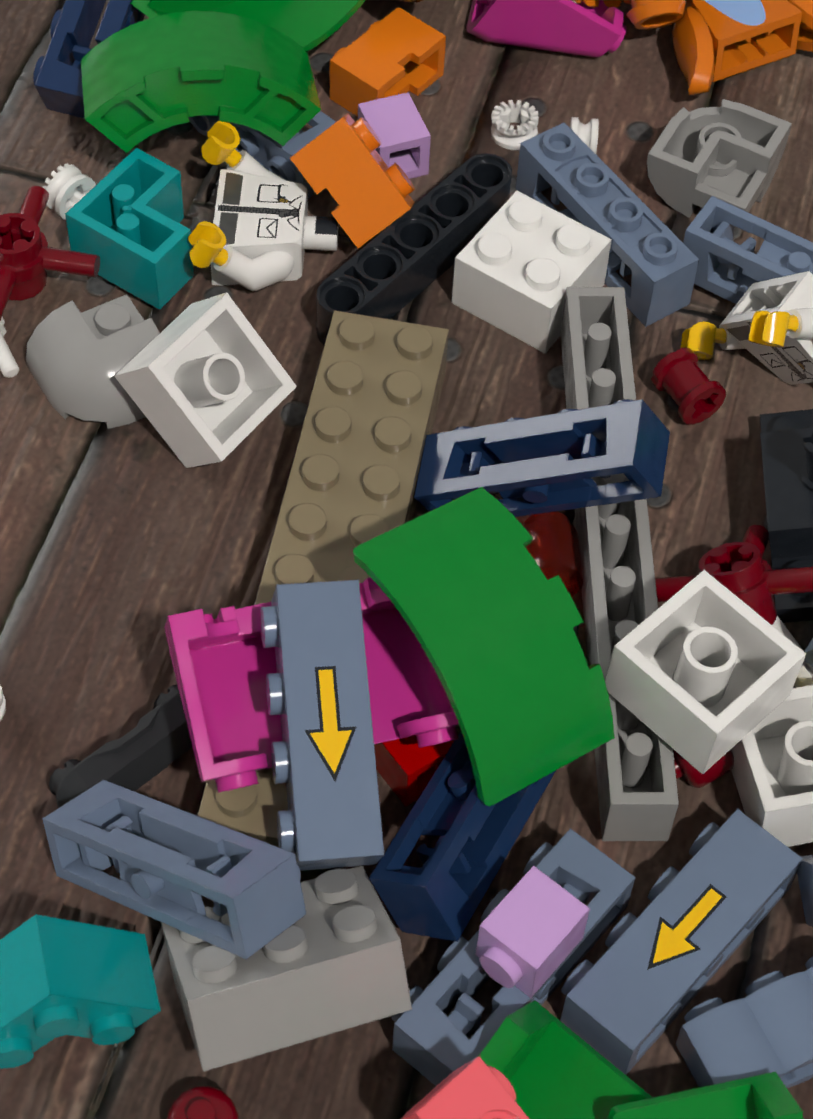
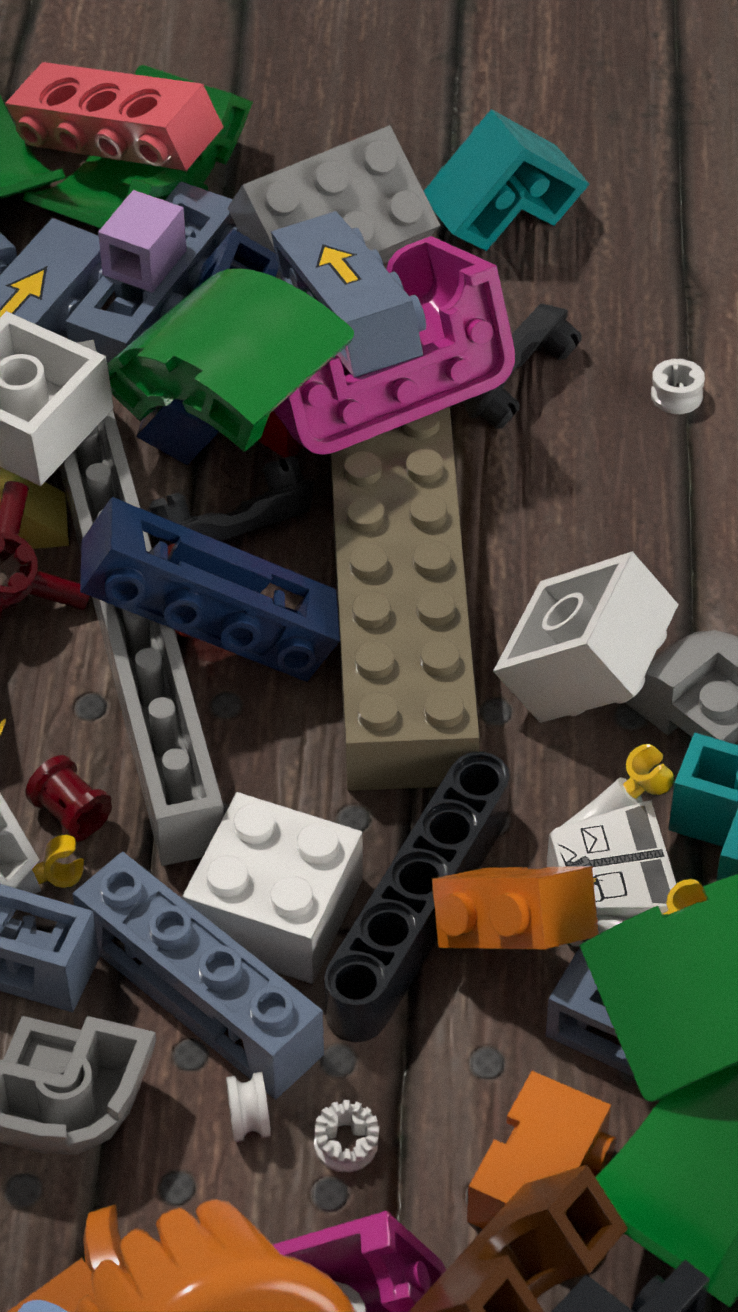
camera: 170 degrees right, 5 degrees down
(171, 862) = (437, 209): sand blue brick -> none
(401, 133) = (493, 1045): lavender brick -> none

